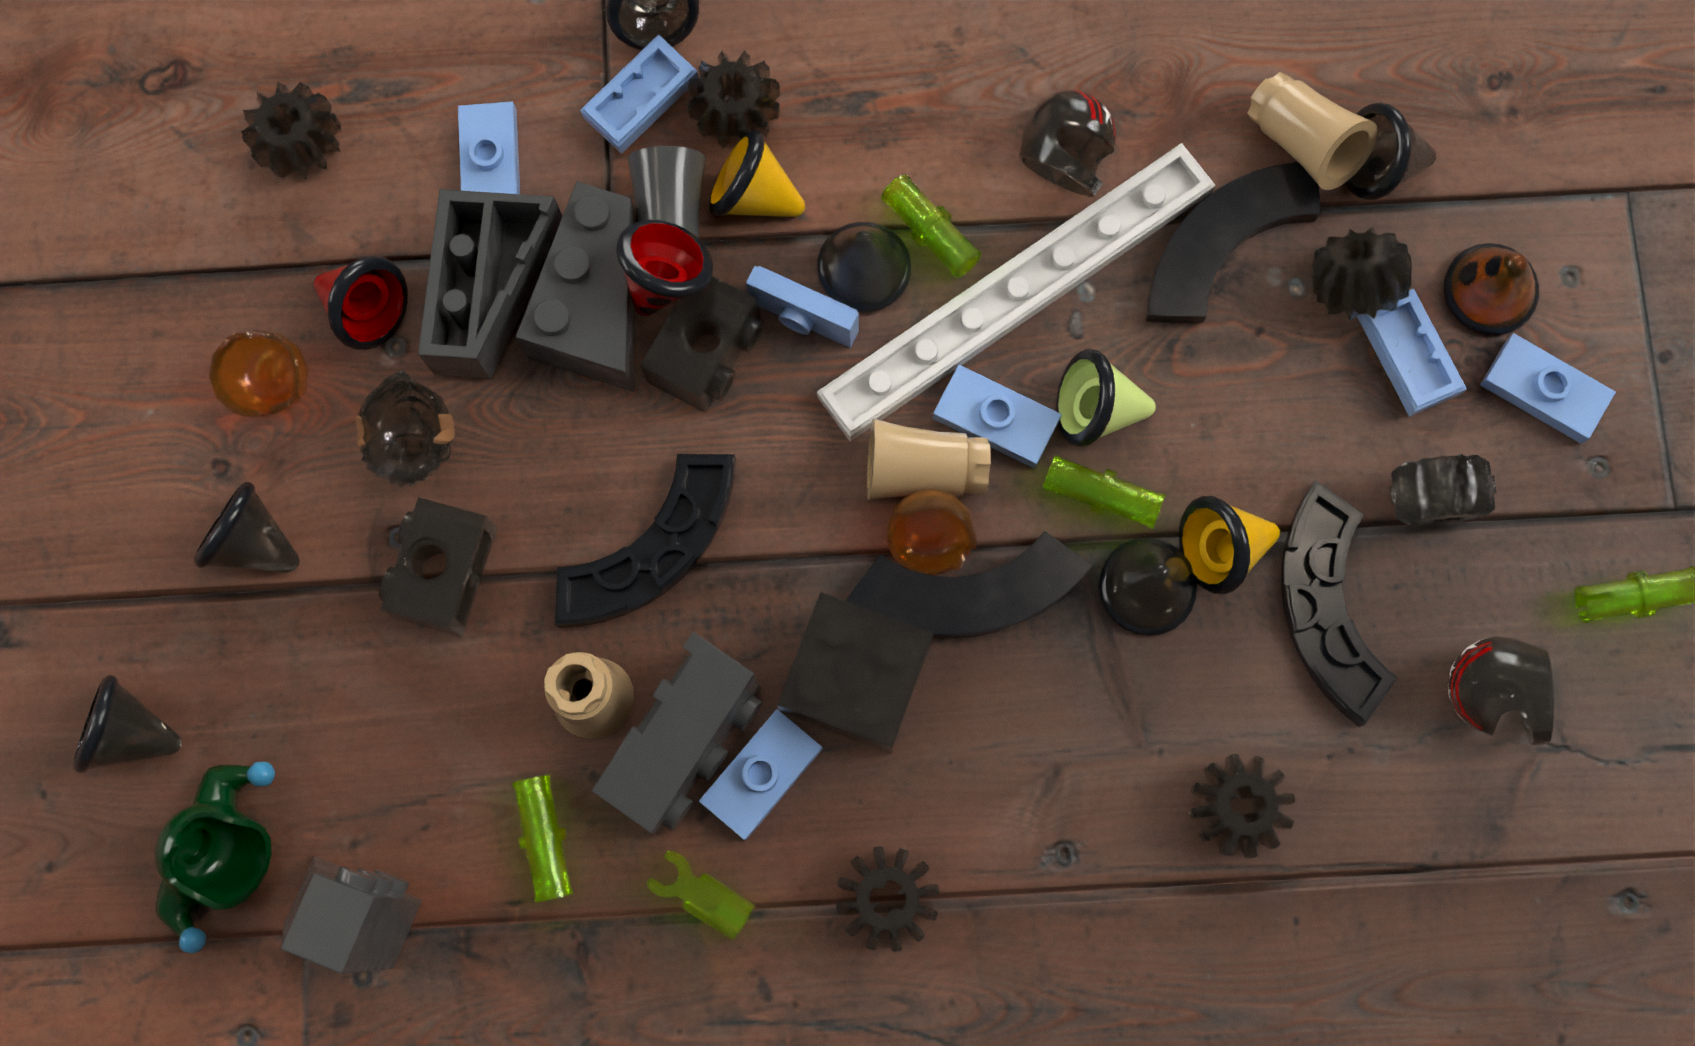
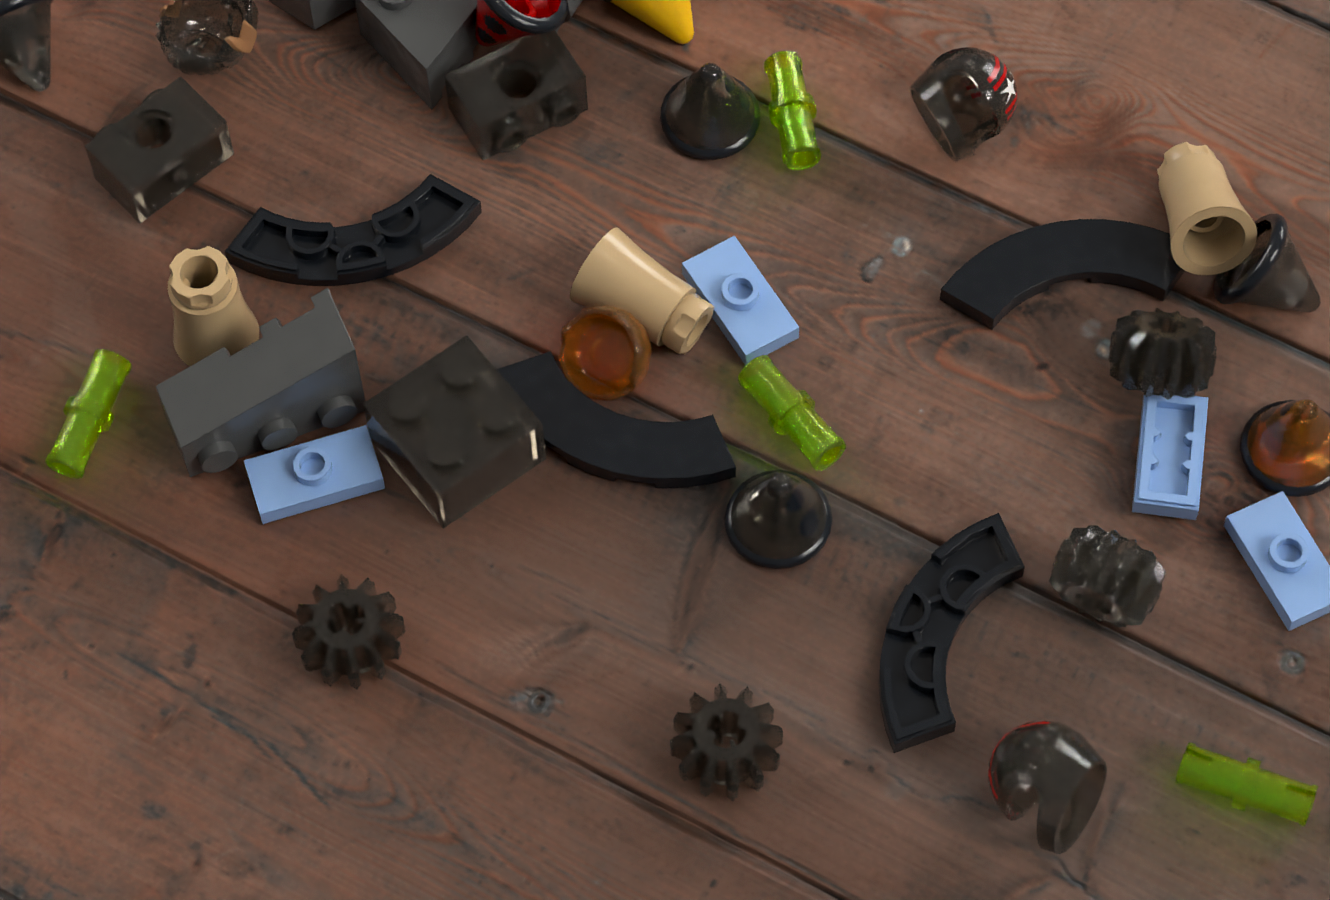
camera: 30 degrees right, 15 degrees down
(705, 898) = (192, 544): clear neon green bar -> none
(802, 307) = (626, 113): light blue plate -> none
(1015, 292) = (840, 207): white tile -> none
(1097, 399) = (845, 334): yellowish green hat -> none
(1223, 542) = (875, 513): yellow hat -> none

